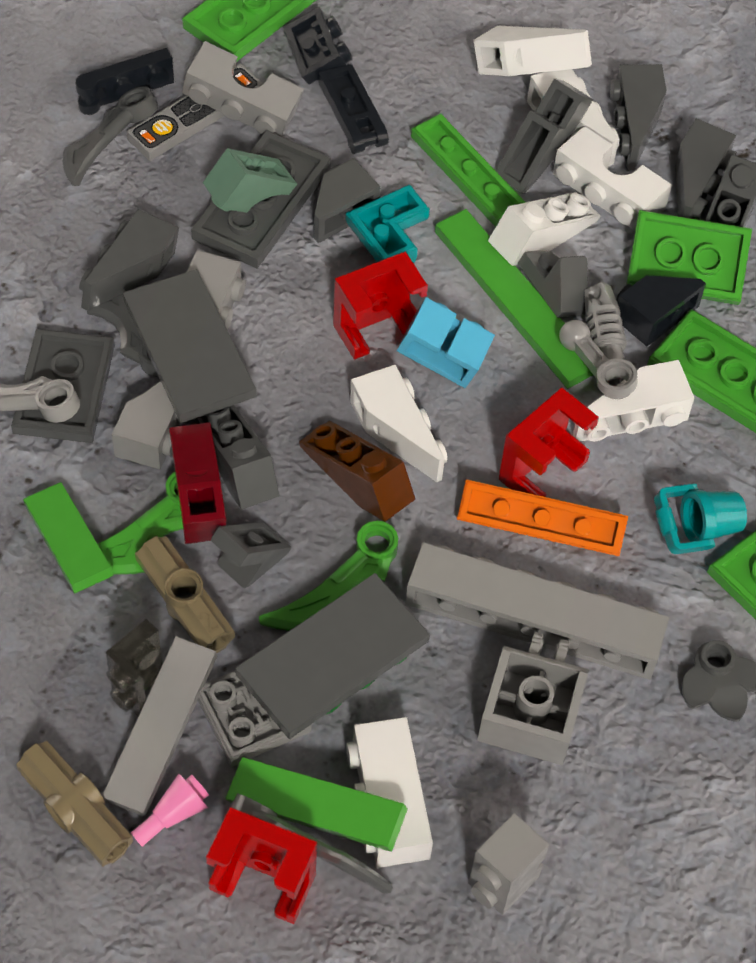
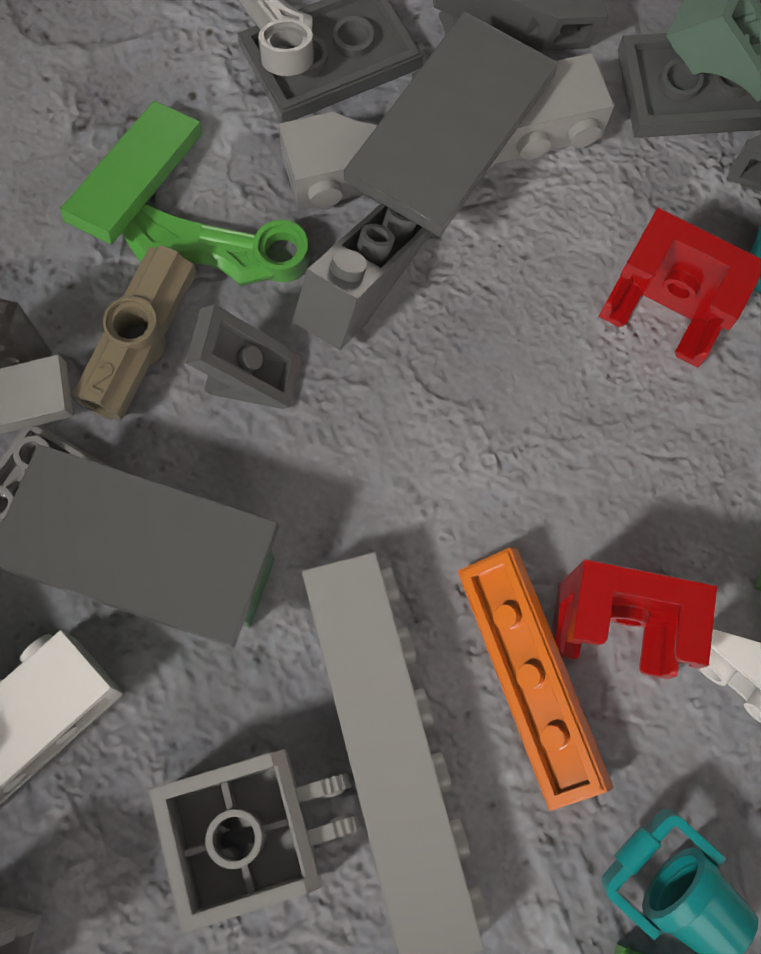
camera: 55 degrees right, 15 degrees up
(197, 481) = (273, 246): dark red slope -> none
(347, 576) = (301, 500): bright green piece -> none
(360, 469) = (439, 415): reddish brown slope -> none
(391, 417) = (542, 399): white slope -> none
(445, 343) = (693, 398): medium azure piece -> none

